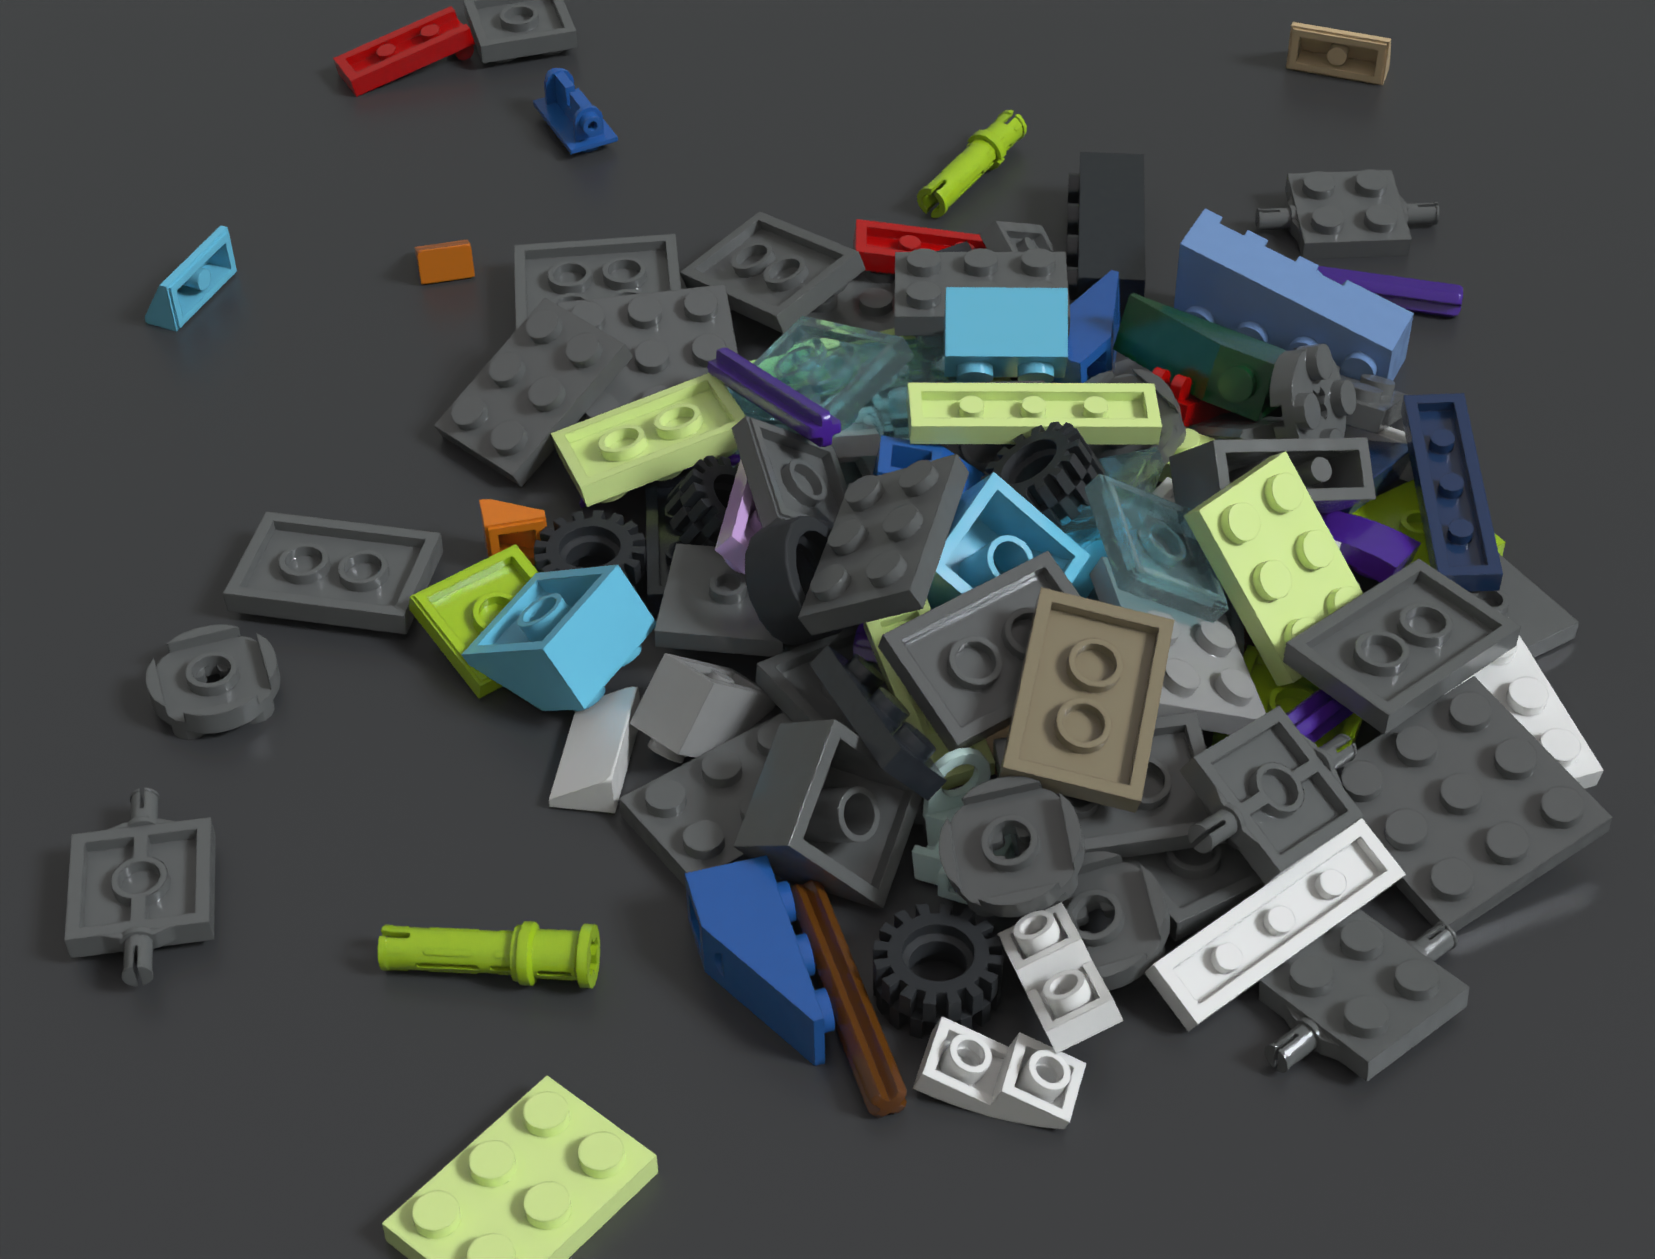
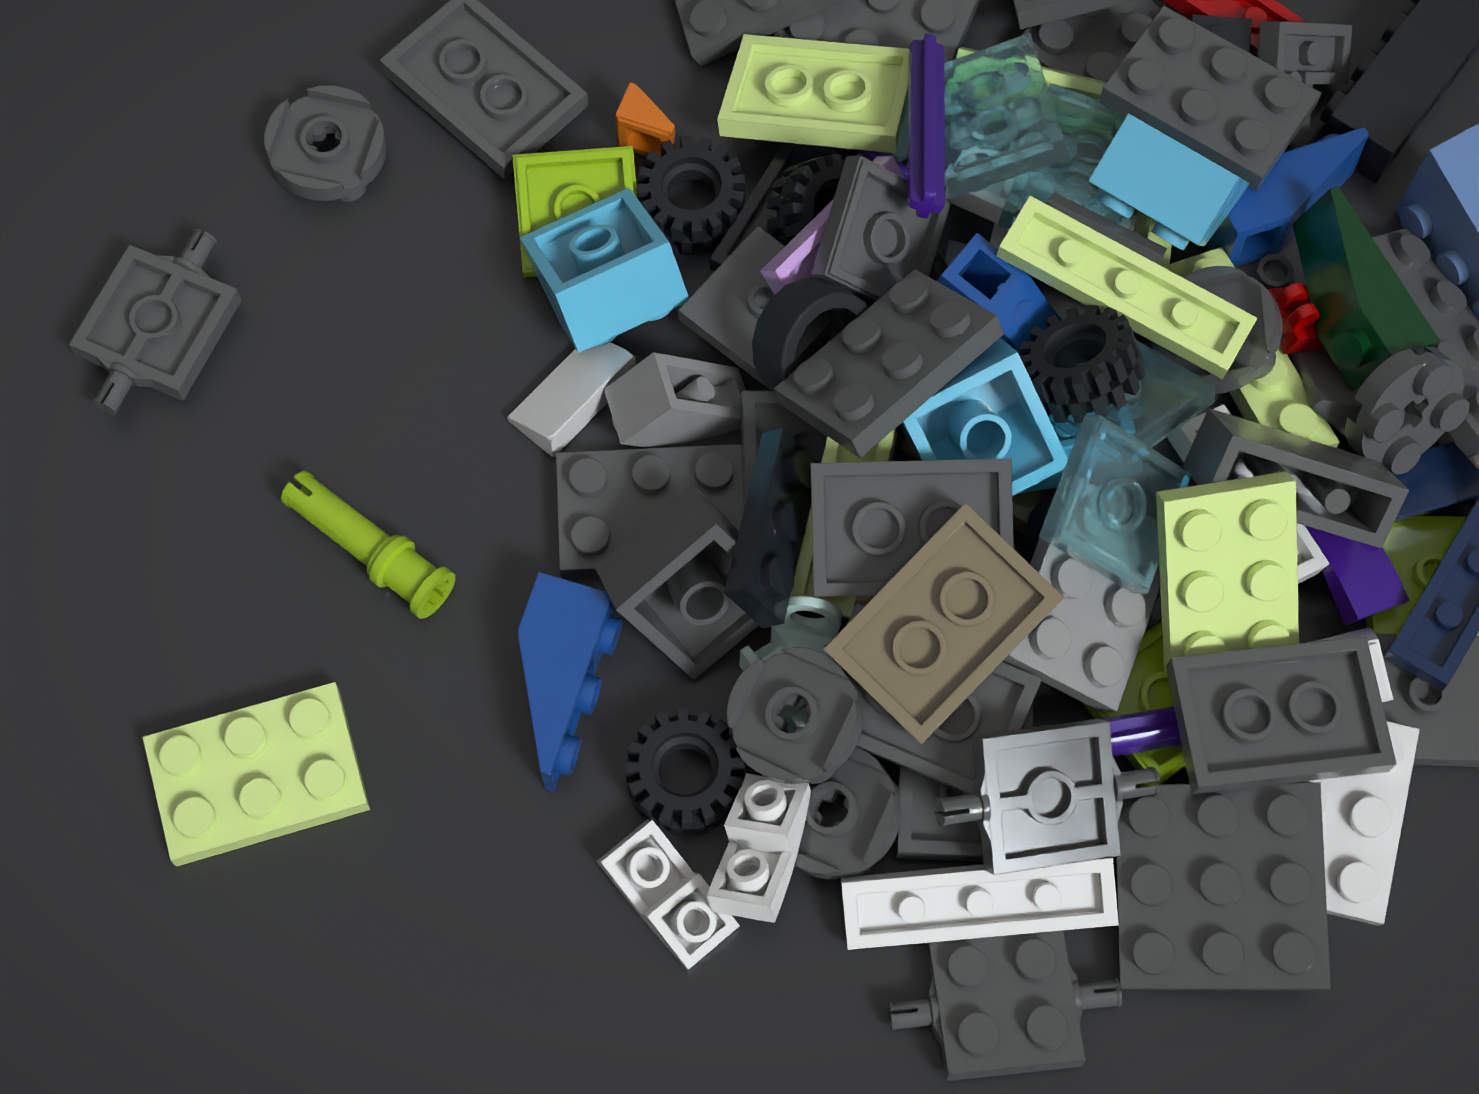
camera: 30 degrees right, 25 degrees up
(852, 1009) = (602, 750): reddish brown axle -> none

